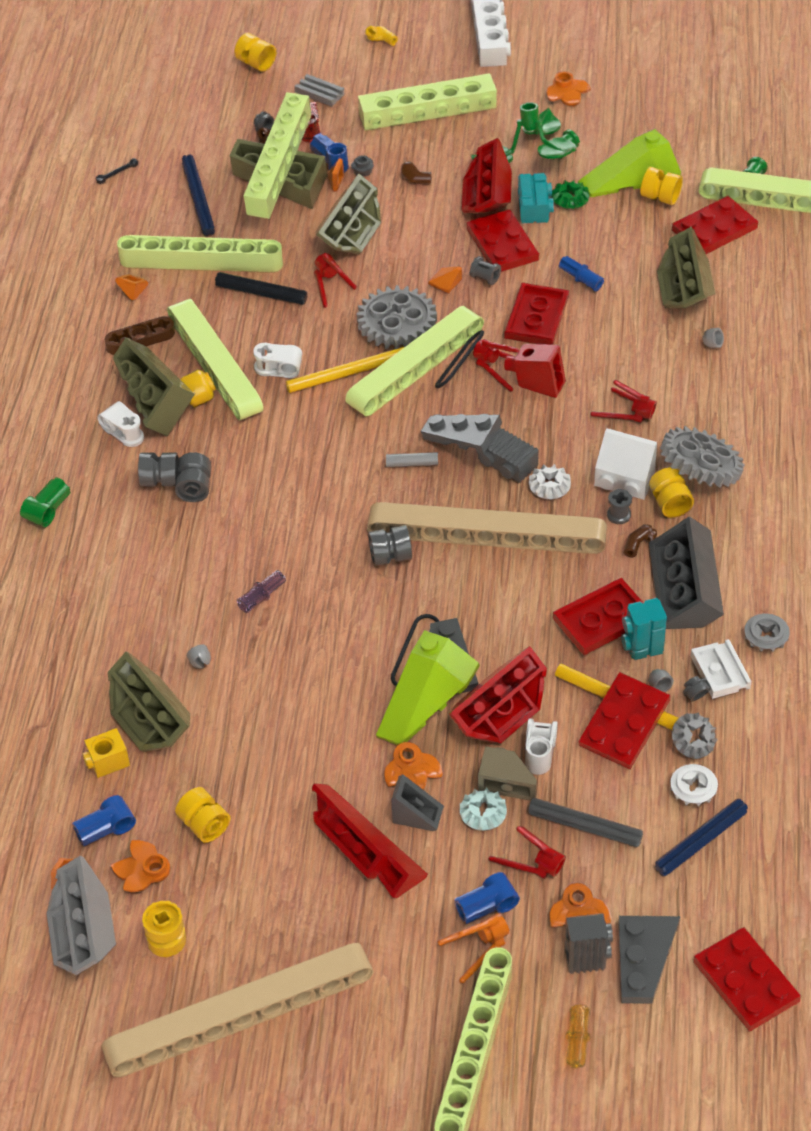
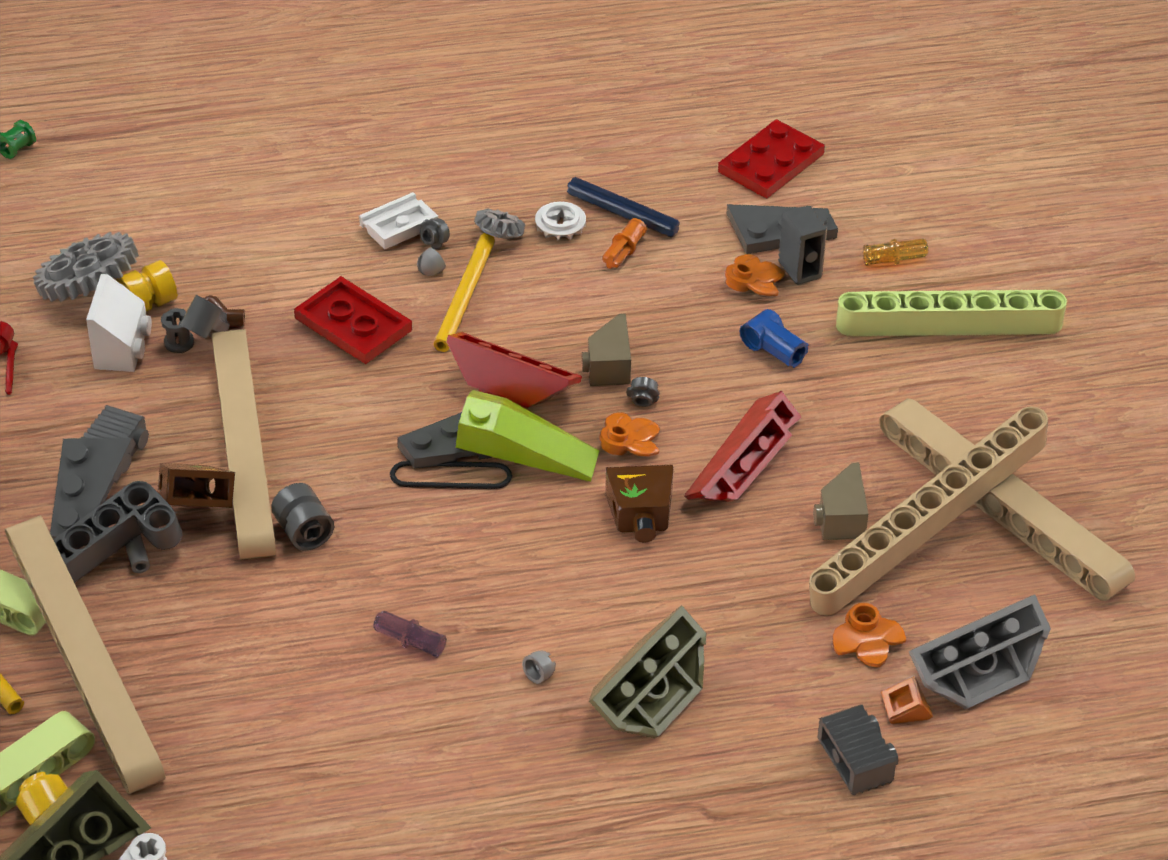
camera: 110 degrees left, 5 degrees down
(36, 820) = (858, 749): none -> dark grey brick
(106, 753) = (728, 709): yellow brick -> none
(111, 817) = (818, 676): blue piece -> none
(157, 469) = (227, 795): dark grey wheel -> none
(164, 928) = (946, 576): yellow wheel -> none
(193, 477) = (218, 753): dark grey wheel -> none
(202, 814) = (779, 587): yellow wheel -> none
(229, 935) = (927, 511): none -> tan beam
(273, 888) = (842, 506): none -> dark tan slope
(302, 409) = (85, 655): none -> tan beam
(331, 753) = (640, 498): none -> reddish brown torso
(414, 445) = (130, 522): none -> dark grey beam
(414, 806) = (685, 422): dark grey slope -> none
(435, 481) = (190, 485): none -> reddish brown torso
(455, 788) = (643, 391): none -> dark grey plate
(489, 930) = (811, 329): orange plant -> none
(493, 815) = (671, 372): light aqua gear -> none
(540, 746) = (560, 334): white piece -> none
(548, 859) = (702, 305): red plant -> none
(549, 489) = (155, 411): white gear -> none
(585, 822) = (641, 290): dark grey axle -> none
(613, 514) = (204, 318): none -> dark grey piece
(624, 720) = (499, 276): red plate -> none
(644, 629) = (376, 264): teal brick -> none
(647, 823) = (624, 243): none -> orange axle
(686, 575) = (275, 262): dark grey slope -> none
(766, 623) = (333, 188): light grey gear -> none

